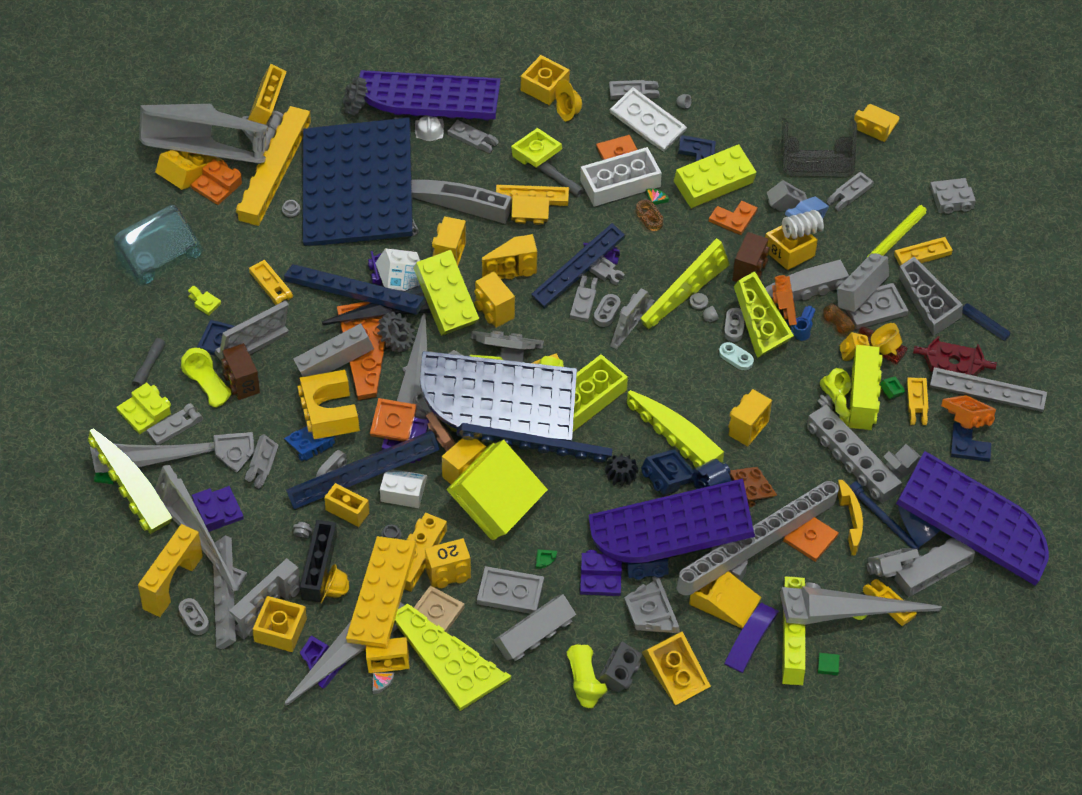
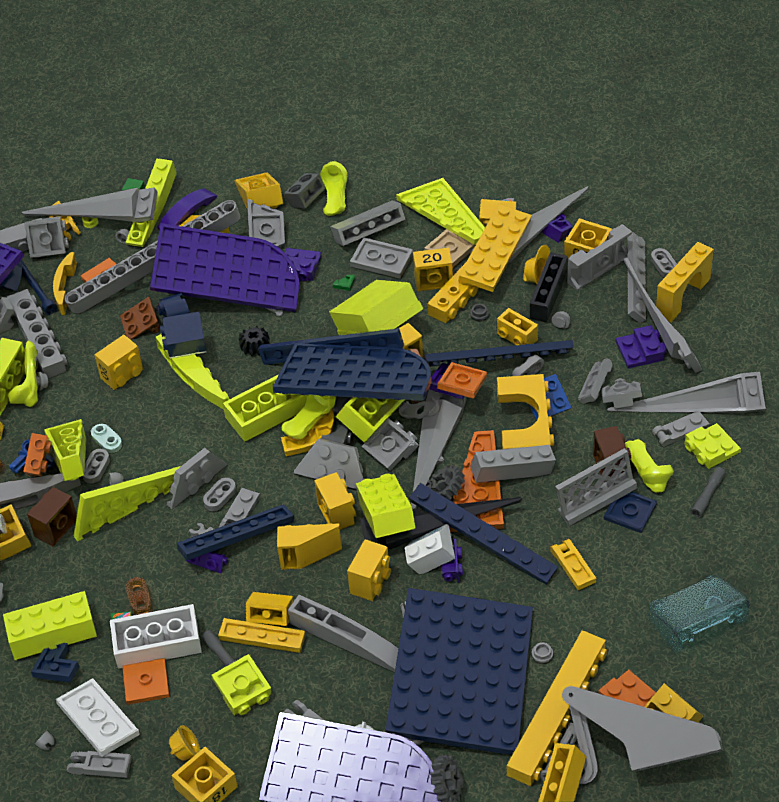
camera: 165 degrees left, 5 degrees down
(132, 484) = (723, 355): slope -> none
(205, 302) = (646, 551): neon yellow plate -> none
(239, 576) = (622, 292): light grey tile -> none
(402, 488) = (460, 338): white slope -> none
(667, 471) = (217, 332): dark blue plate -> none
(691, 442) = (183, 335): none -> dark blue piece
(734, 221) = (46, 581): orange plate -> none

